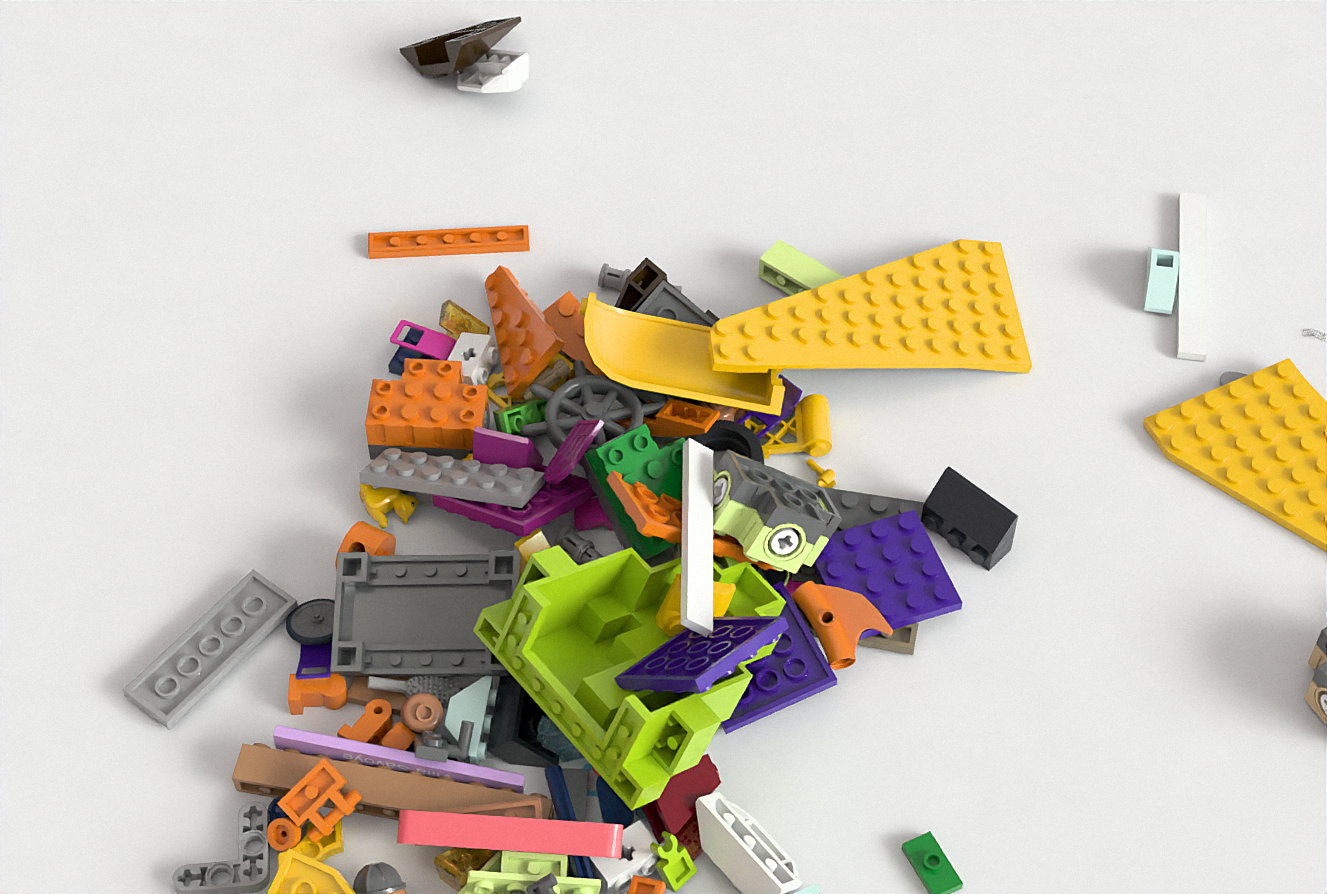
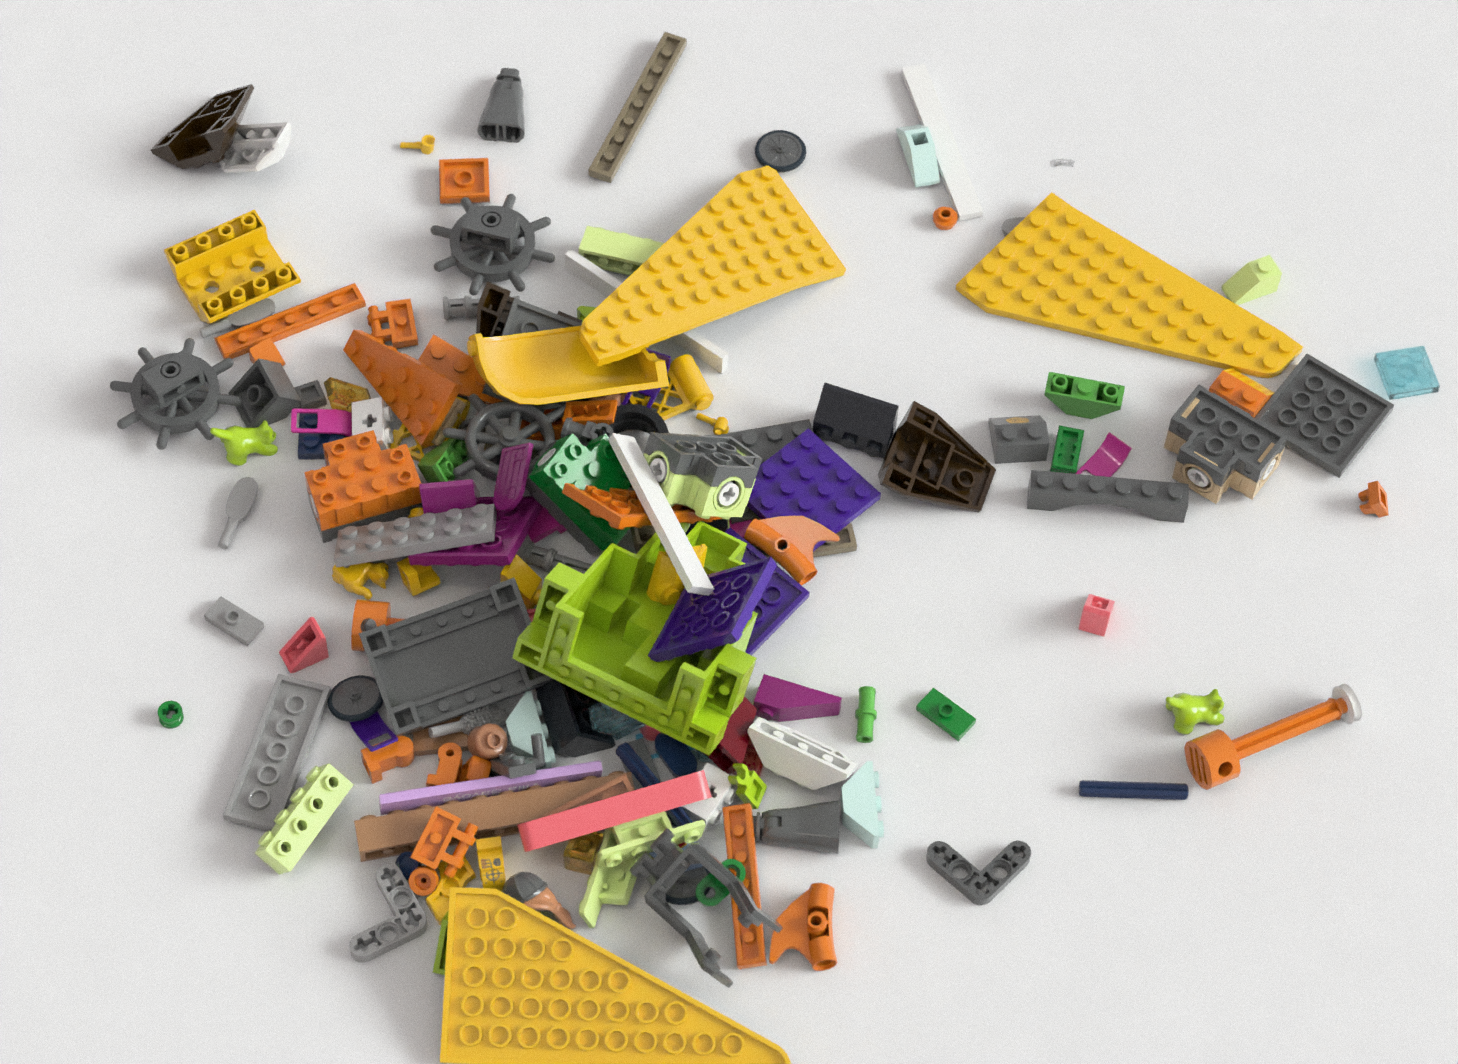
camera: 25 degrees left, 5 degrees up
(133, 579) = (176, 719): none -> green bush
(197, 723) = (303, 818): none -> yellowish green brick
(242, 503) = (234, 621): none -> light grey plate
(294, 553) = (305, 647): none -> coral slope
(301, 260) = (172, 384): none -> dark grey piece
(304, 397) = (238, 507): none -> light grey piece
(340, 335) = (243, 441): none -> lime animal
(363, 842) = (491, 862): none -> yellow leg
(385, 299) = (265, 394): none -> dark grey slope
(404, 221) = (242, 317): none -> light grey piece
(407, 265) = (265, 350): none -> orange slope
(415, 166) = (225, 261): none -> yellow slope
(429, 315) = (311, 395): none -> dark grey tile
(441, 523) = (417, 577): none -> yellow panel
(552, 276) = (401, 323): none -> orange plate
(662, 122) = (426, 144): none -> yellow hand
(667, 431) = (585, 432): none -> dark grey connector
(680, 219) = (493, 234): none -> dark grey piece
(682, 165) = (464, 179): none -> orange plate
(753, 112) = (504, 109): none -> dark grey piece
(764, 789) = (789, 701): none -> magenta slope
(829, 378) = (606, 284): none -> white tile
(841, 833) = (865, 714): none -> bright green pin
(887, 149) = (637, 107): none -> dark tan plate
(1016, 232) = (780, 150): none -> dark grey wheel
(1039, 593) = (935, 463): none -> dark brown wedge
(1144, 599) = (1019, 439): none -> dark grey slope
(1151, 817) = (1096, 615): none -> coral slope
(1162, 349) = (945, 218): none -> orange plate
(1193, 629) = (1067, 450): none -> green plate
(1229, 657) = (1107, 458): none -> dark pink piece
(1235, 576) = (1083, 396): none -> bright green slope
(1273, 714) = (1155, 498): none -> dark grey arch

